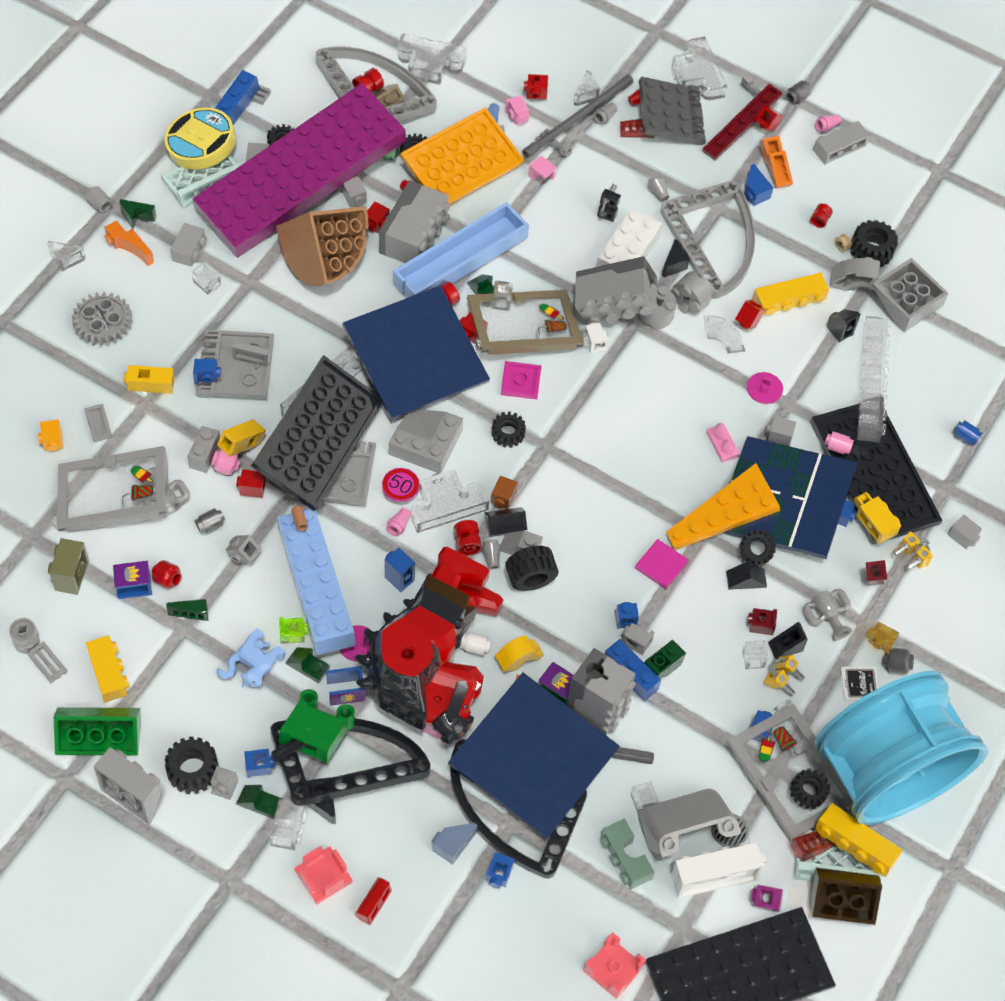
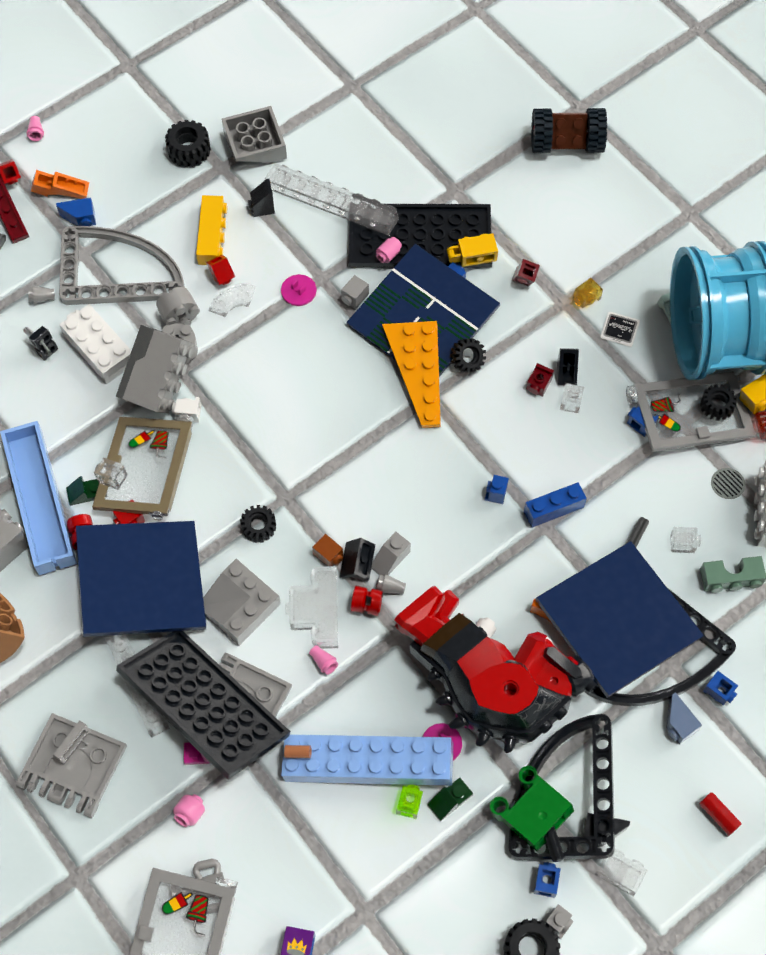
camera: 65 degrees left, 5 degrees up
(98, 423) = (83, 934): light grey tile -> none
(149, 379) = (53, 861): yellow brick -> none
(166, 574) = (301, 912): red head -> none
(189, 609) = (354, 892): dark green slope -> none
(203, 449) = (166, 827): light grey brick -> none
(206, 370) = (74, 795): blue brick -> none
(209, 521) = (254, 848): flat silver brick -> none
(241, 437) = (171, 783): yellow brick -> none
(243, 549) = (303, 822): light grey brick -> none
(251, 483) = (227, 791): red brick -> none
(252, 656) = (431, 848): light blue animal -> none
(259, 801) = (584, 893): dark green slope -> none
(323, 873) = (680, 852): coral panel -> none
(345, 675) = (495, 753): blue piece -> none
(399, 569) = (382, 675): blue brick -> none
(400, 484) = (283, 644): piece -> none
(517, 652) = (507, 596): yellow brick -> none
(521, 380) = (205, 493): dark pink tile -> none
(531, 568) = (426, 552): black tyre -> none
(557, 681) = (551, 571): dark purple piece -> none
(601, 691) = (584, 534): light grey piece -> none
(637, 638) = (523, 488): light grey brick -> none
(661, 564) = (451, 442): dark pink tile -> none
(666, 659) = (555, 471): dark green slope -> none
(676, 260) = (129, 309): black slope -> none
(683, 814) = (723, 511): light grey windscreen -> none
(722, 442) = (344, 345): bright pink tile -> none
(746, 576) = (489, 378): black slope -> none
(778, 678) = (602, 387): piece -> none
(821, 215) = (138, 174): red wheel -> none
(828, 609) = (547, 324): light grey piece -> none
(841, 142) = (62, 126): light grey brick -> none
(843, 242) = (173, 167): tan bush -> none
(854, 273) = (214, 169): light grey brick -> none
(899, 661) = (613, 289): dark grey head -> none
(909, 545) = (519, 234): piece -> none
(965, 532) = (507, 192): light grey brick -> none
(967, 432) = (410, 151): blue brick -> none

